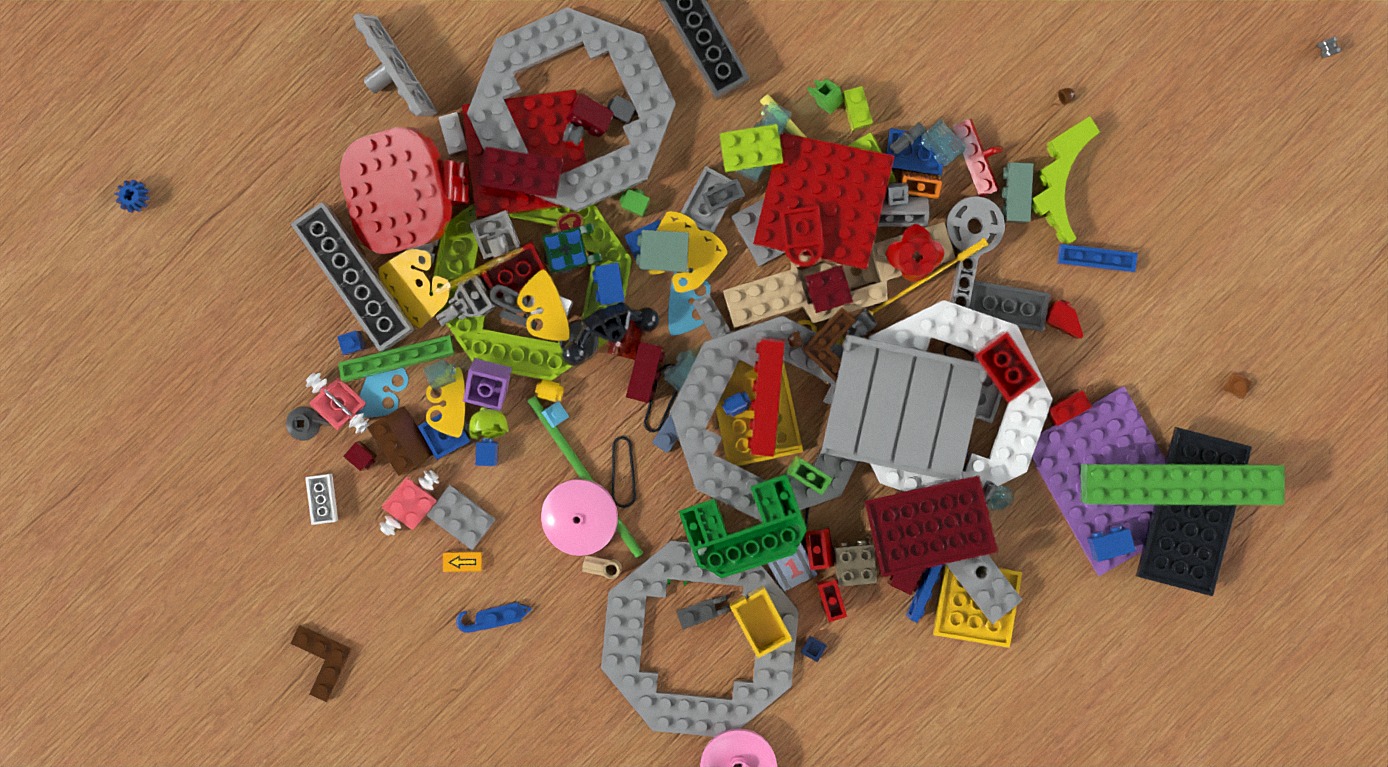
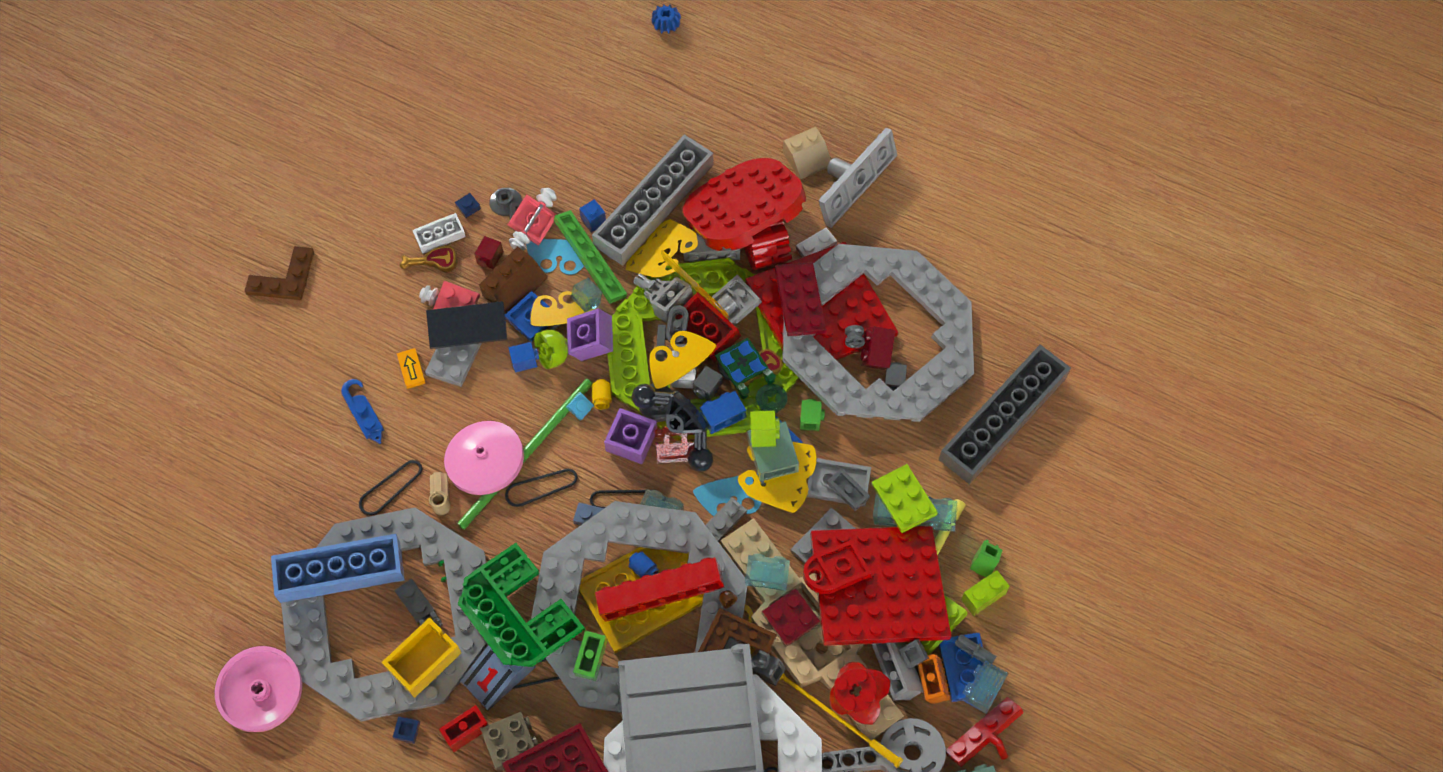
camera: 70 degrees right, 25 degrees down
(296, 462) = (467, 205): none -> dark blue plate
(347, 106) = (807, 153): none -> tan slope
(348, 503) = (441, 257): none -> pearl gold piece
(438, 498) = (466, 325): none -> black tile
(569, 611) = (384, 480): none -> black piece
(576, 289) = (707, 384): none -> dark grey brick
(604, 376) = (630, 436): none -> medium lavender brick
(612, 225) = (771, 390): none -> clear green gear
(645, 372) = (647, 473): dark red brick -> none
(650, 253) = (764, 428): none -> lime brick
(652, 676) = (337, 568): none -> medium blue brick
(783, 296) = (767, 572): none -> clear light blue brick
(819, 549) = (516, 698): red brick -> none

